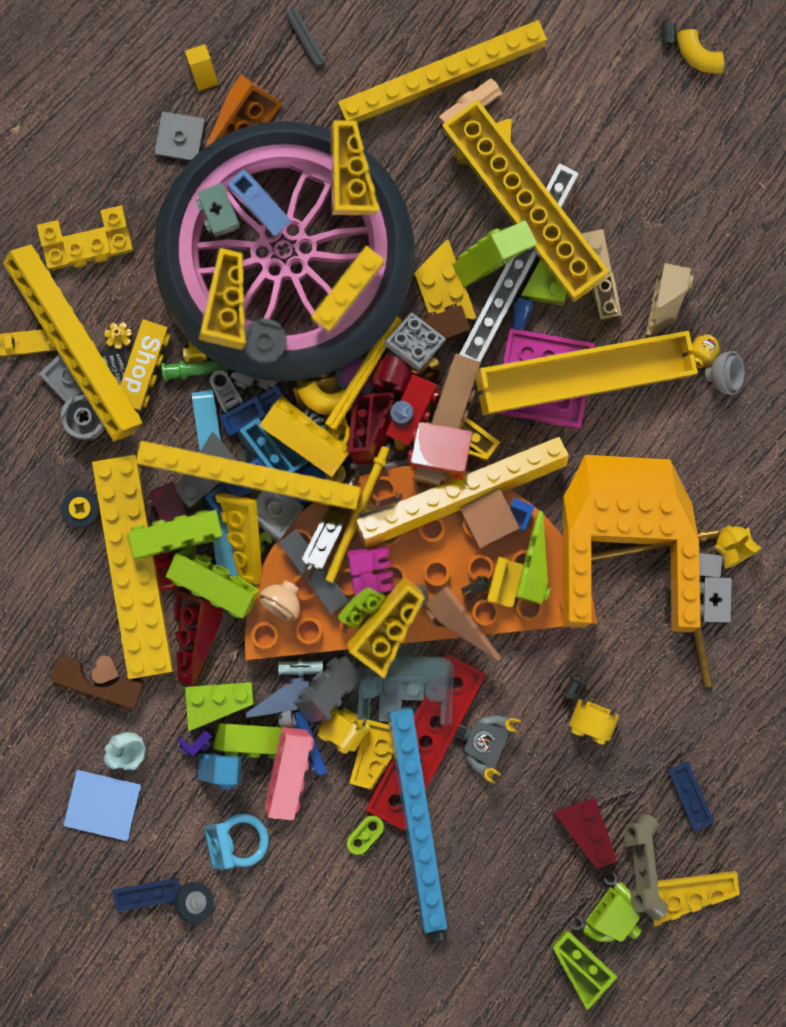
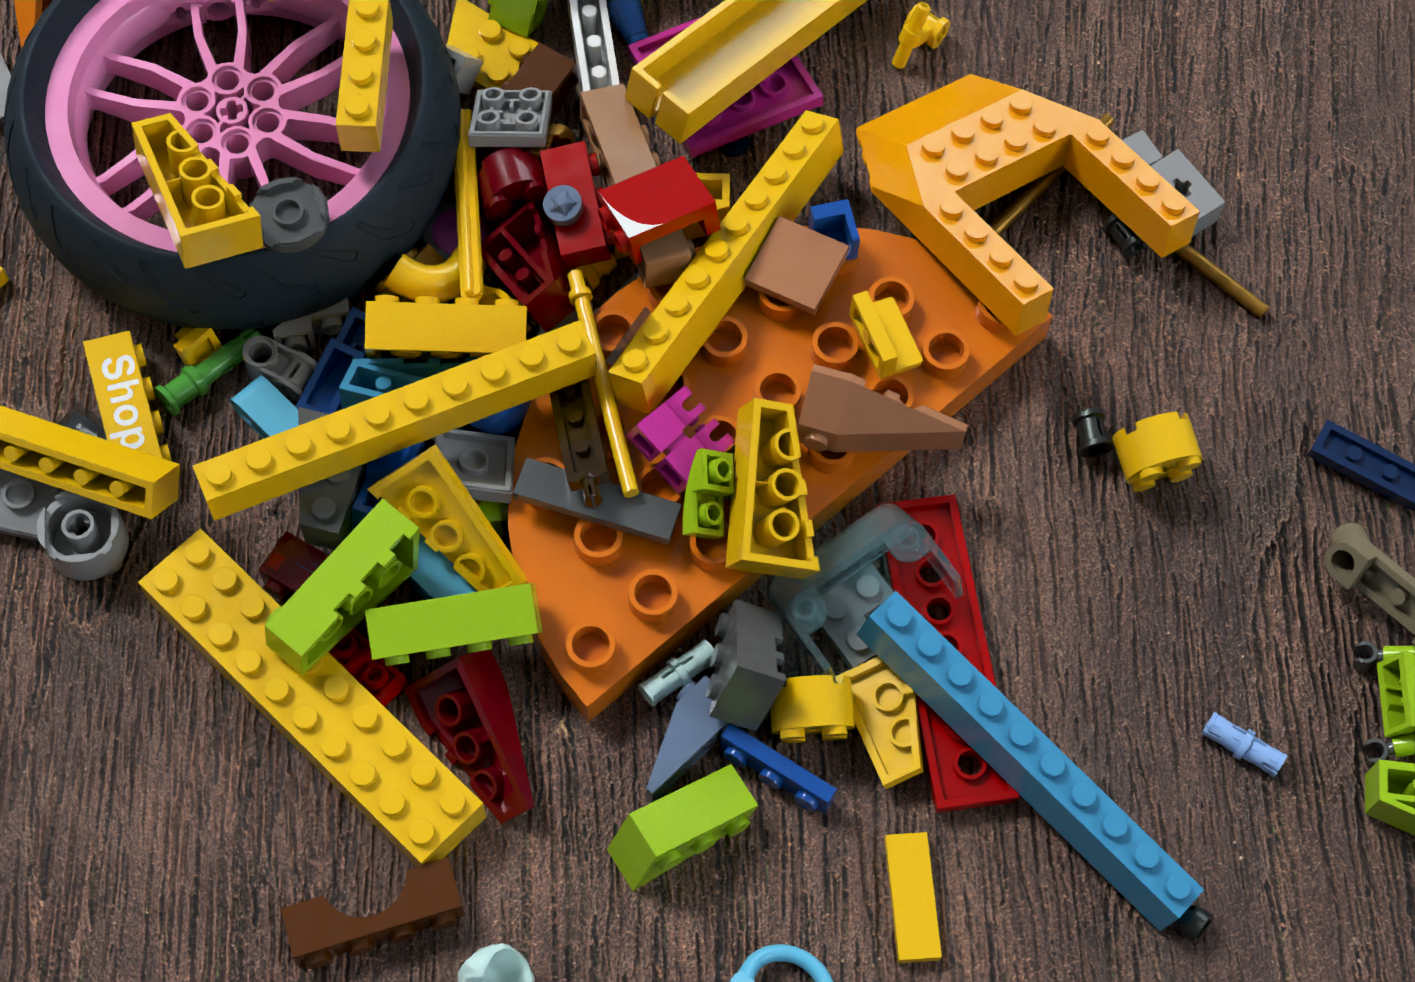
camera: 40 degrees left, 20 degrees down
(86, 513) = (174, 684): black wheel -> none
(105, 670) = (373, 888): nougat tile -> none
(118, 335) = (61, 398): yellow plant -> none
(201, 743) = (610, 888): dark purple bracket -> none
(213, 197) = (95, 94): sand green brick -> none
(216, 701) = (586, 806): lime wedge -> none
(220, 769) = (673, 896): dark azure wedge -> none
(258, 202) = (142, 46): medium blue slope -> none
(281, 600) = (579, 571): light nougat piece -> none
(287, 719) = (717, 752): light grey hinge -> none
(288, 773) = (781, 830): coral brick -> none
(327, 838) = (912, 897): none -> yellow tile
(365, 835) = (966, 850): lime plate -> none
(418, 286) = (465, 68): none -> light grey panel
(480, 585) = (854, 359): pearl dark grey pin -> none
(486, 742) = (1034, 586): torso -> none
(523, 878) = (1244, 744): none -> light blue pin
(534, 577) = (919, 291): lime wedge -> none
(588, 830) = (1280, 607): dark red wedge -> none
(663, 419) = (917, 29): none -> yellow piece
(735, 545) = (1147, 107): yellow helmet -> none

